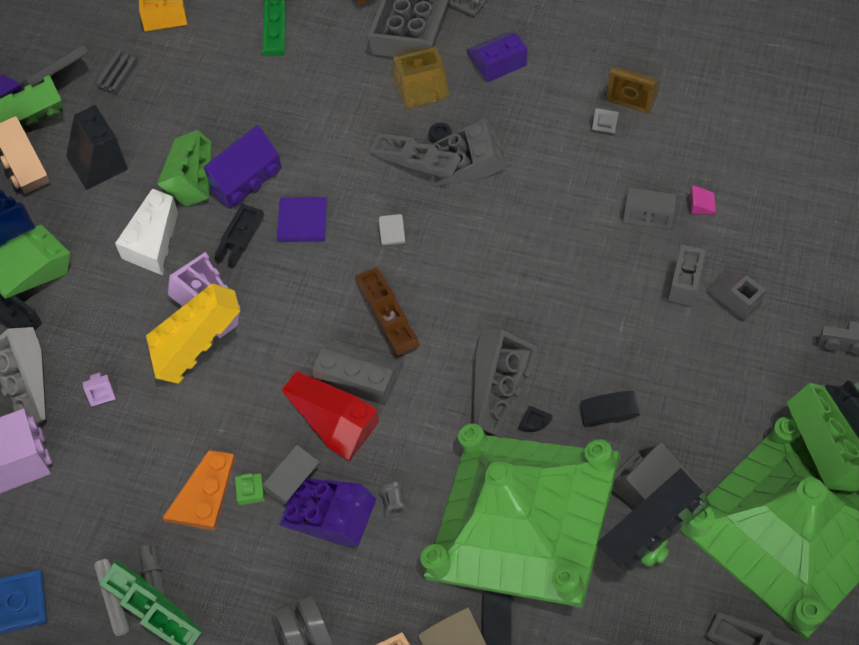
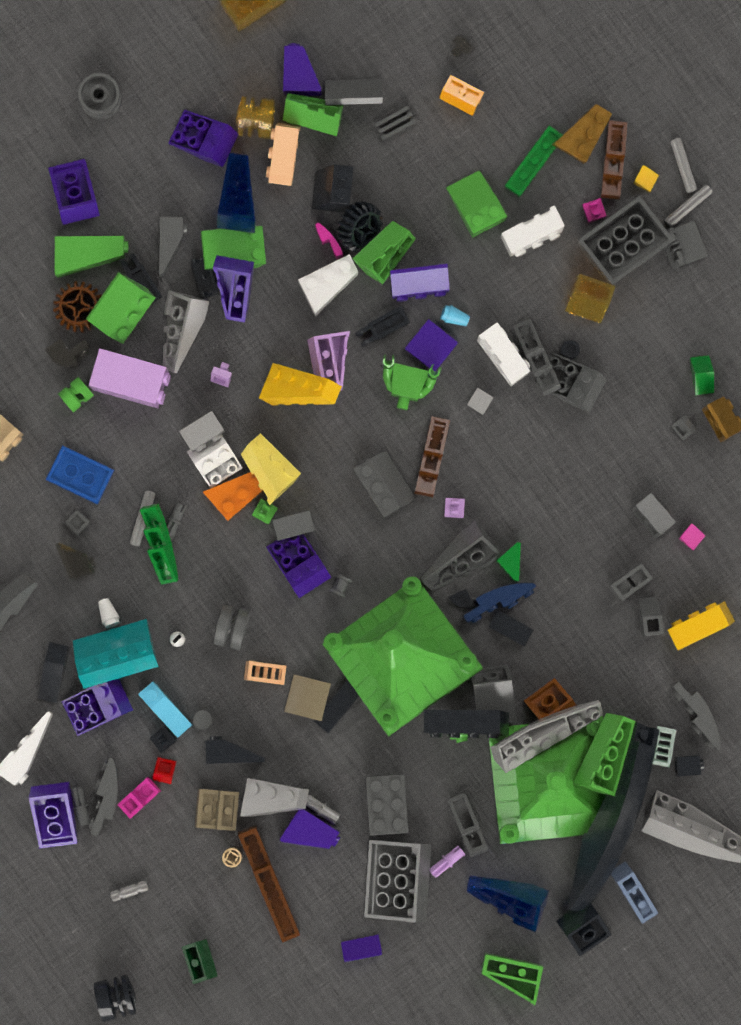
camera: 30 degrees right, 25 degrees up
(50, 289) = (235, 284): none -> dark purple wedge
(113, 449) = (202, 431): none -> light grey slope
(119, 197) = (326, 237): none -> dark pink slope
(141, 159) = (359, 225): none -> black gear
(152, 474) = (215, 462): none -> white slope
(219, 434) = (270, 467): none -> light yellow wedge
(250, 81) = (476, 203): none -> bright green slope
(303, 178) = (454, 316): none -> medium azure cone
(303, 261) = (408, 382): none -> bright green torso
(322, 62) = (533, 232): none -> white wedge
(333, 414) = (346, 503): red wedge -> none
(361, 19) = (594, 210): none -> dark pink tile
(377, 172) = (504, 354): none -> white wedge
(450, 341) = (454, 508): none -> lavender tile
(499, 55) = (659, 316): dark purple slope -> none
(553, 346) = (511, 562): none -> green slope
(572, 384) = (504, 595): none -> dark blue slope
(582, 71) = (702, 375): none -> green slope
(723, 444) = (549, 700): none -> dark orange slope
(744, 474) = (543, 734): none -> light grey wedge
(790, 262) = (700, 624): none -> yellow wedge

